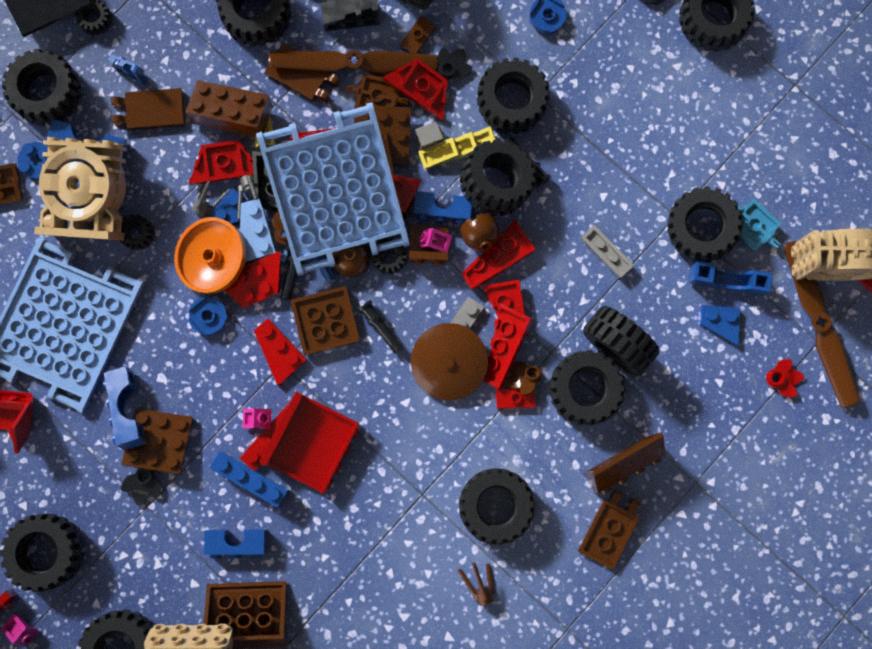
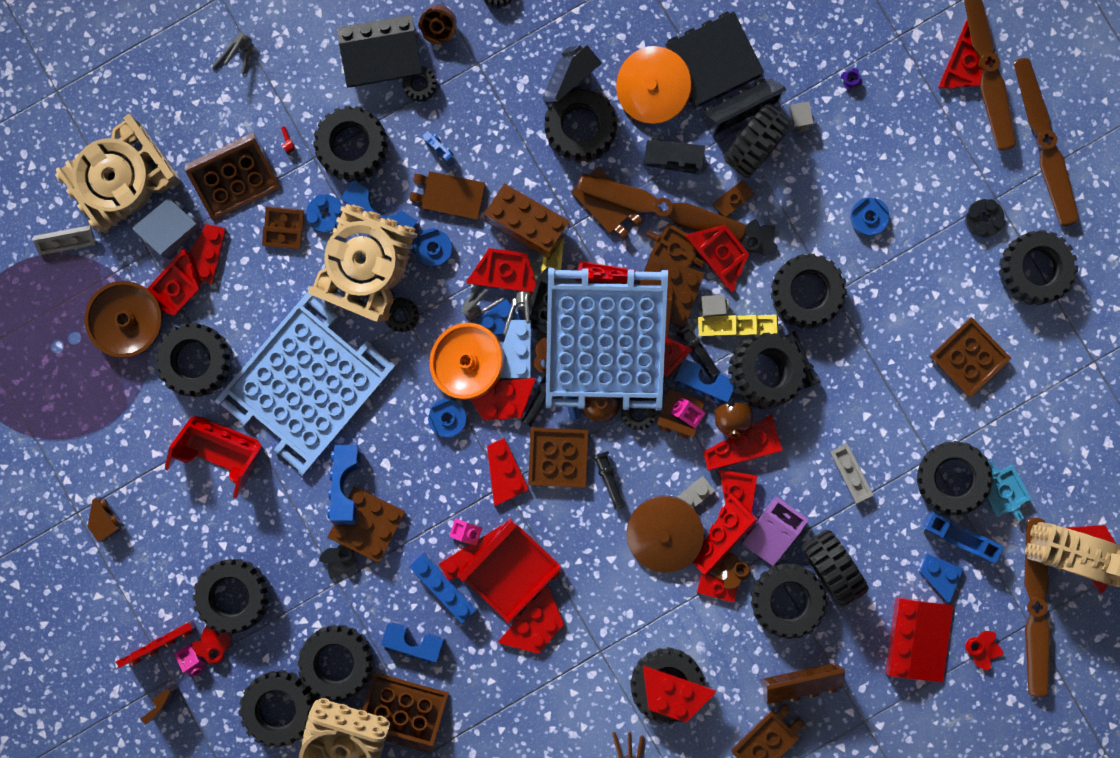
camera: 25 degrees right, 5 degrees up
(36, 604) = (211, 642): none -> red plate
(137, 585) = (310, 669): none -> black tyre
(158, 166) = (438, 238): none -> blue plate
(351, 488) = (535, 625): none -> red wing
(418, 173) = (702, 356): none -> black pin
(505, 511) = (674, 695): none -> red wing
(552, 326) = (775, 531): none -> medium lavender slope
(681, 113) = (970, 357): none -> reddish brown plate
(720, 387) = (918, 640): none -> red slope

